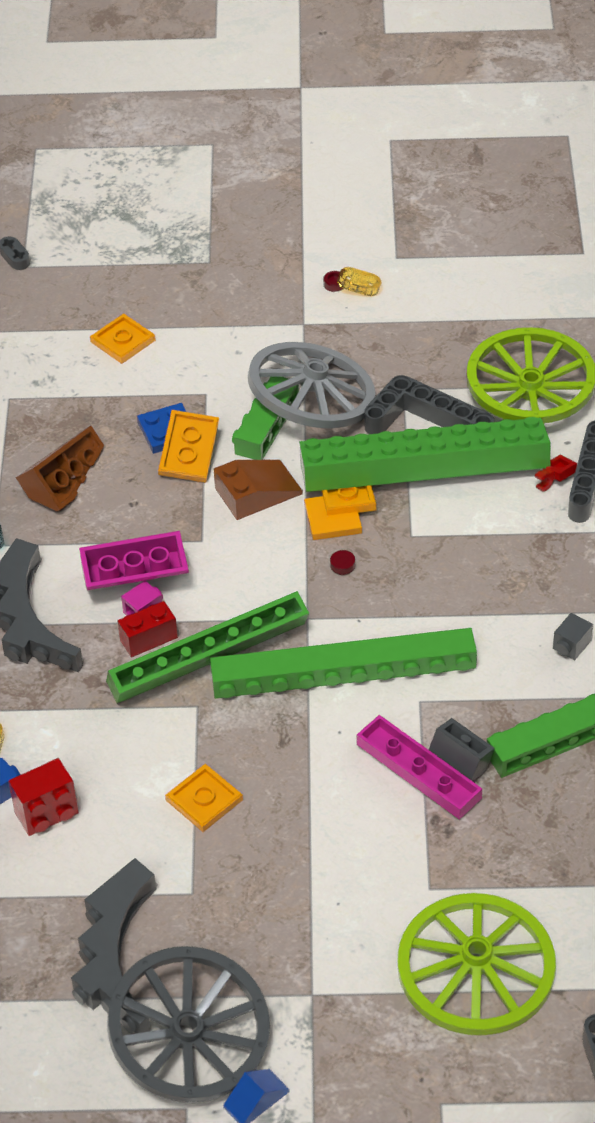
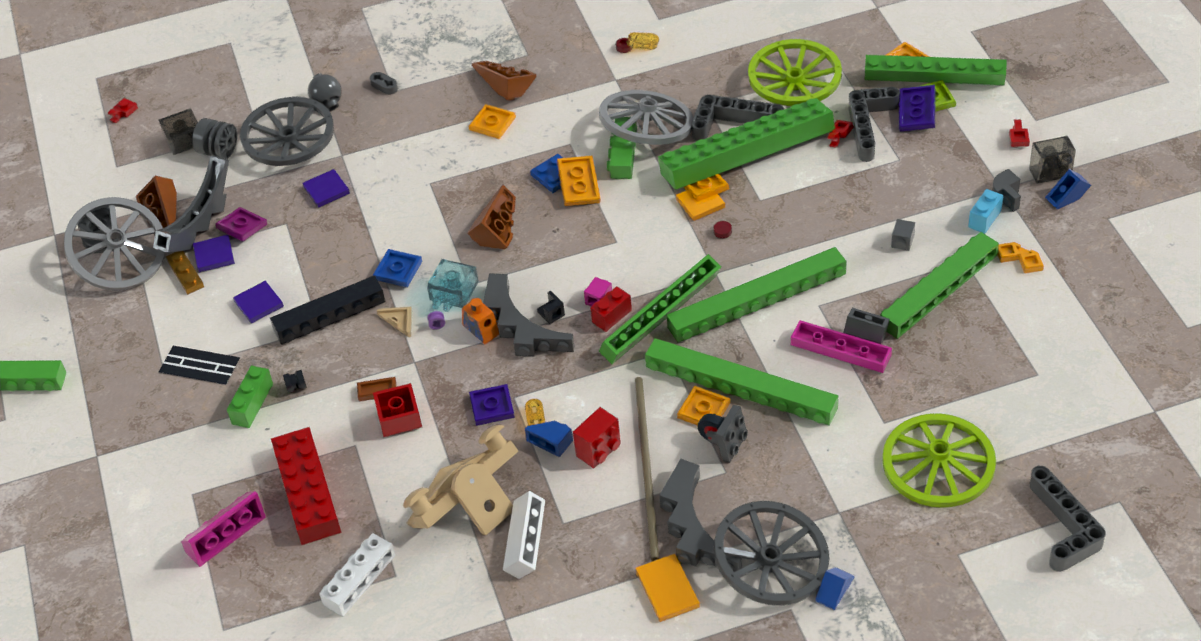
camera: 15 degrees left, 0 degrees up
(42, 1027) = (667, 587): none -> light orange tile
(75, 609) = (553, 309): none -> black panel
(92, 860) = (652, 530): none -> dark tan piece
(133, 560) = (580, 266): dark pink slope -> none
(162, 289) = (505, 80): none -> dark orange wedge
(210, 840) = (724, 431): none -> dark grey plate
(254, 485) = (636, 195): dark orange slope -> none
(268, 778) = (742, 381): none -> bright green brick

